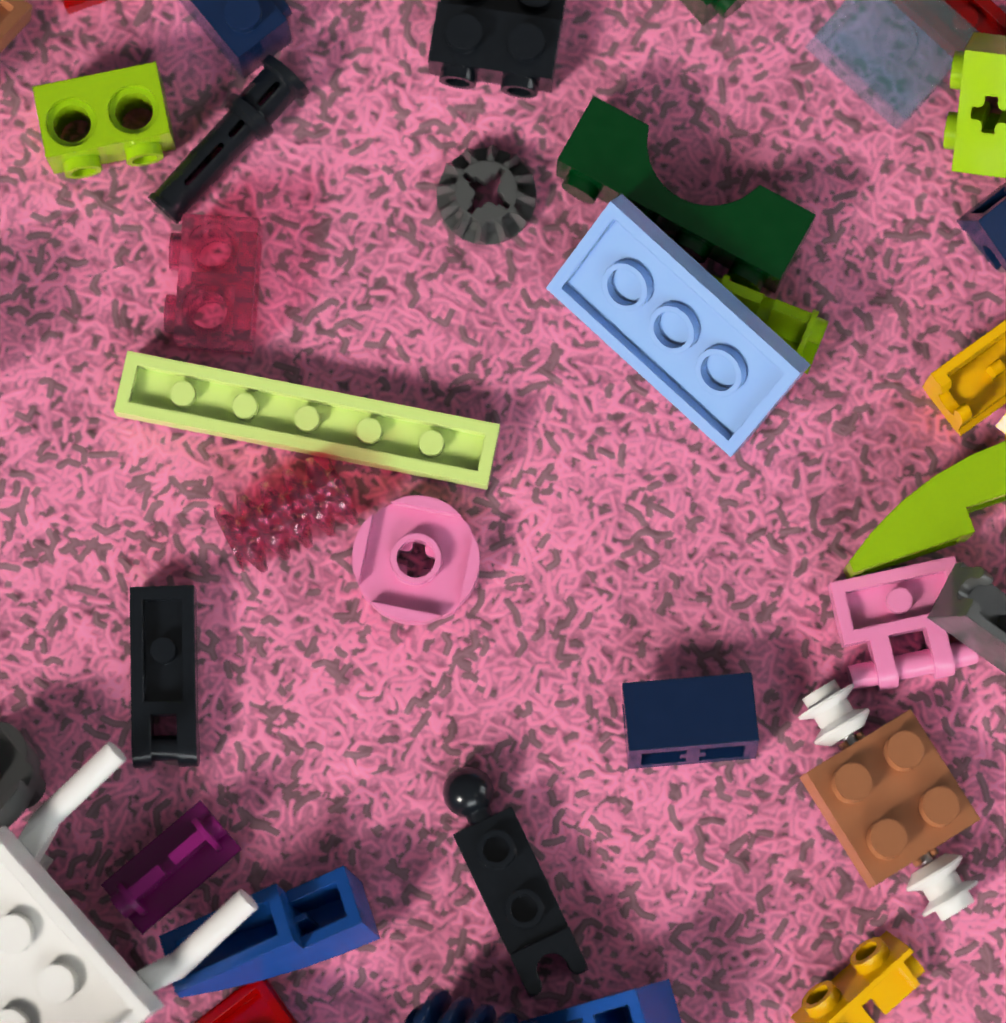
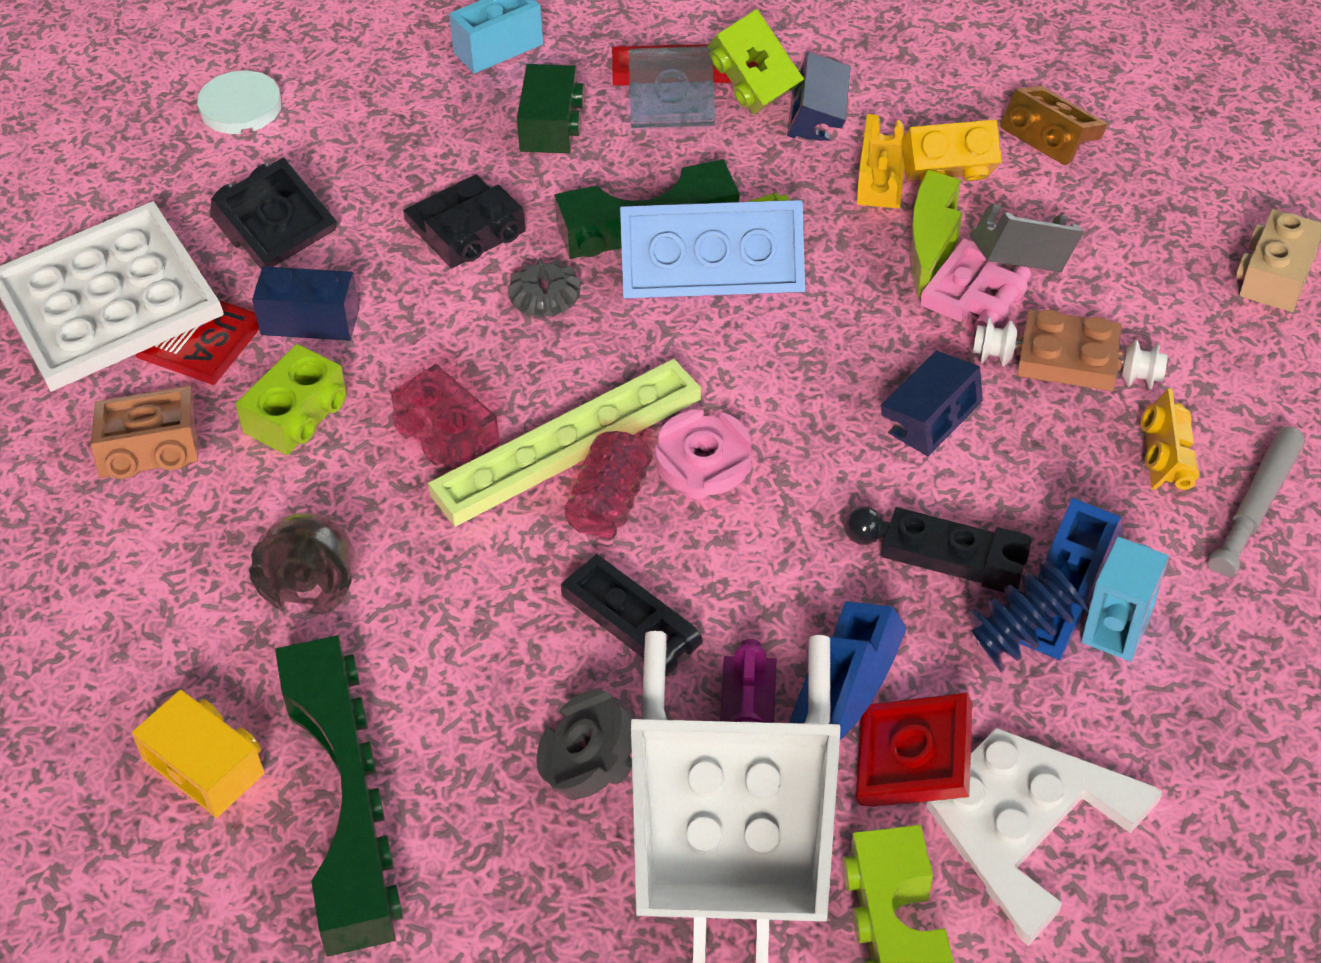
camera: 45 degrees left, 30 degrees down
(173, 195) = (374, 402): black pin -> none

